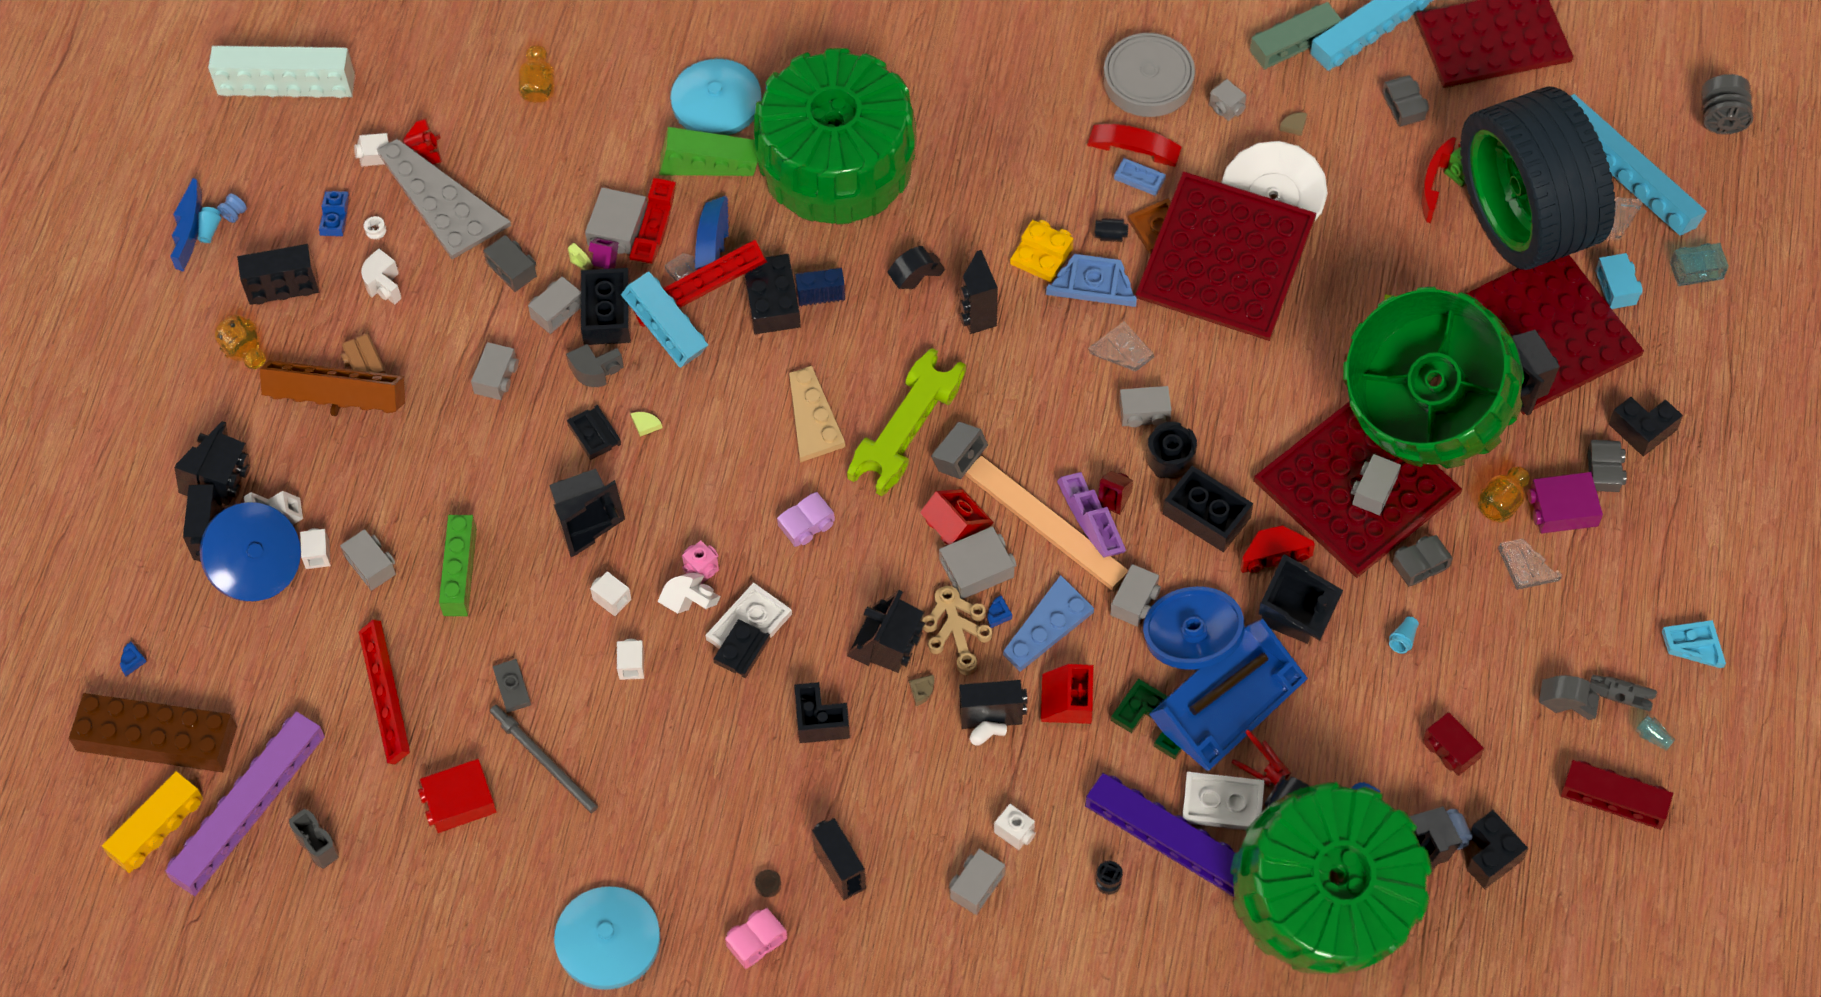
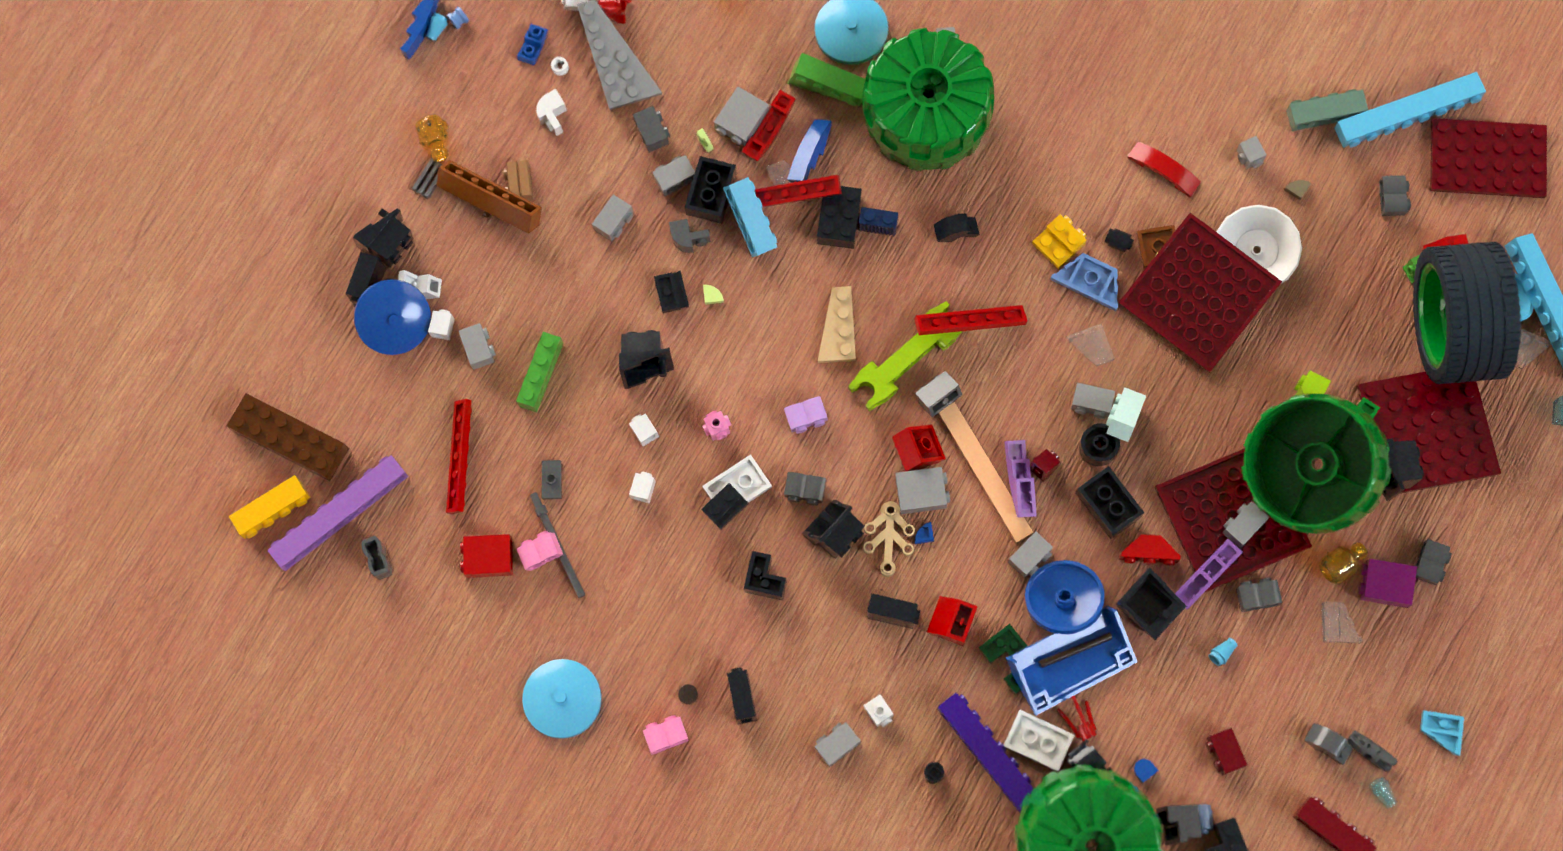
camera: 25 degrees right, 15 degrees up
(131, 659) = (288, 371): blue tile -> none
(235, 407) = (431, 163): none -> flat silver tile
(278, 274) = (475, 89): black brick -> none
(523, 769) = (539, 551): none -> bright pink brick
(604, 253) = (723, 143): magenta panel -> none
(685, 589) = (699, 447): white brick -> none
(833, 601) = (805, 488): none -> dark grey brick
(922, 689) = (848, 578): dark tan tile -> none
(968, 357) = (970, 320): none -> red plate
(978, 296) = (993, 271): black slope -> none
(986, 730) = (883, 627): white arm -> none
(1051, 620) = (962, 553): medium blue wing -> none
(1139, 176) = (1158, 199): medium blue plate -> none
(1148, 74) = (1196, 111): light grey brick -> none
(1189, 405) = (1125, 414): none -> light aqua brick
(1355, 548) = (1208, 572): none -> medium lavender slope
(1440, 159) = (1404, 256): red slope -> none
(1618, 281) = (1504, 408): medium azure brick -> none
(1643, 428) = (1473, 541): black brick -> none

